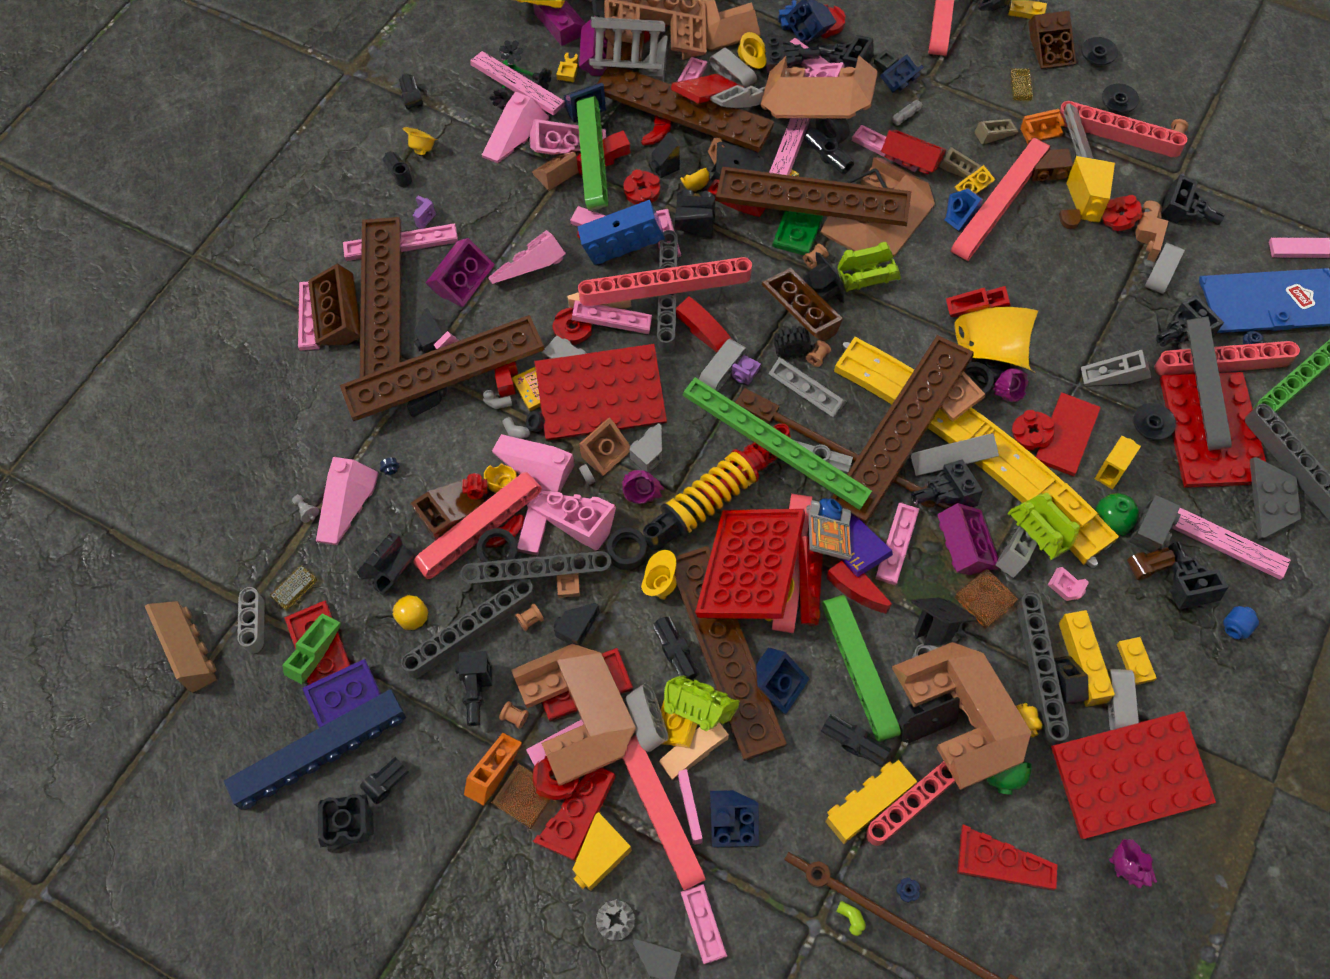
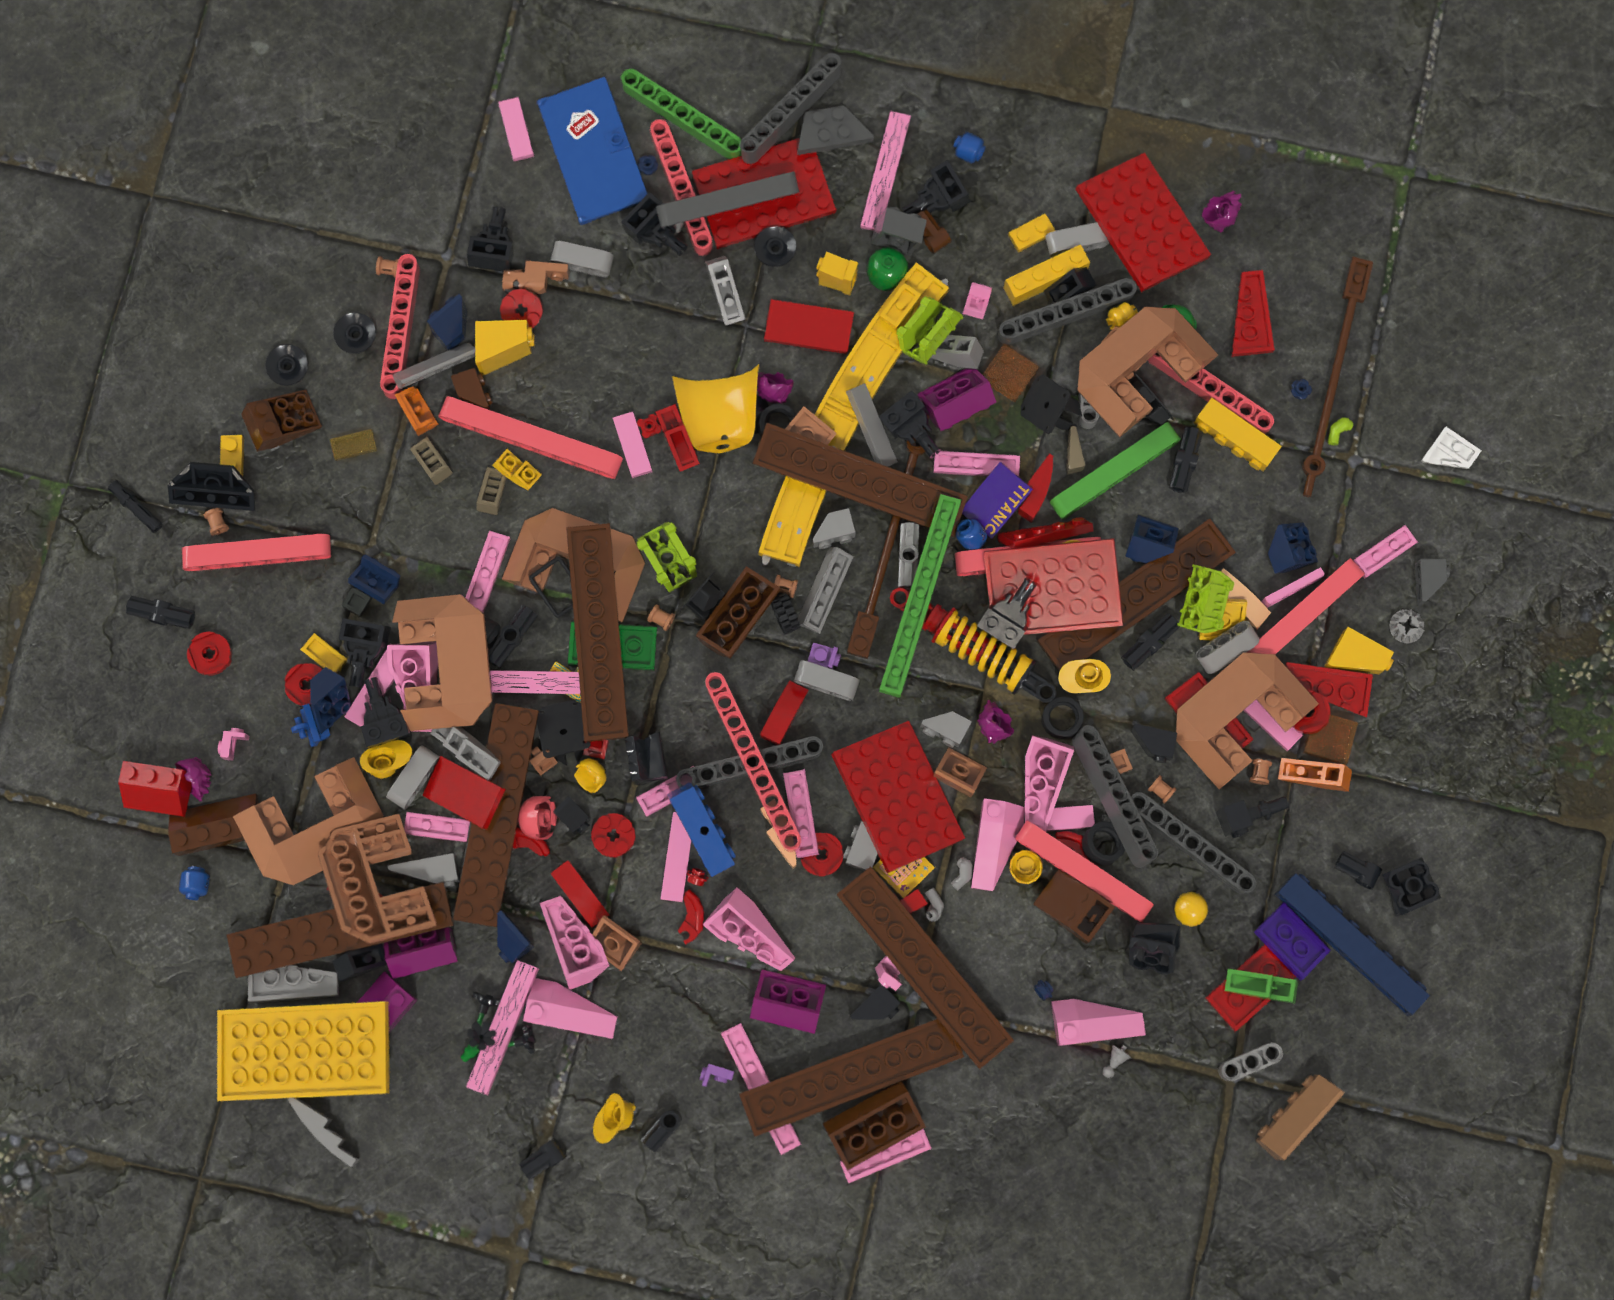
camera: 110 degrees left, 15 degrees up
(293, 587) = (1201, 1036): tile -> none
(474, 486) = (1048, 886): red gear -> none
(535, 421) = (949, 855): black tile -> none
(555, 227) = (695, 917): none -> red piece
(568, 69) = (461, 976): yellow plate -> none
(587, 474) = (995, 781): light grey tile -> none
(592, 154) = (592, 899): bright green beam -> none
(636, 27) = (423, 901): light grey fence -> none
(677, 128) = (537, 816): none -> coral cylinder
(732, 514) = (1006, 619): none -> brick
(827, 534) = (998, 524): flag -> none
(849, 34) = (323, 654): none -> yellow tile
(863, 404) = (835, 528): none -> light grey slope
(887, 632) = (1075, 457): none -> dark tan slope
(906, 112) = (428, 563): light grey axle -> none
(912, 151) = (493, 541): red slope -> none
(962, 208) = (556, 478): blue slope -> none
(979, 271) = (632, 444): none -> bright pink tile
(997, 282) = (651, 420): none -> red plate
(1032, 419) = (806, 362): red plate -> none
(1070, 218) = (537, 362): reddish brown tile -> none
(1123, 154) = (449, 322): none -> dark blue slope

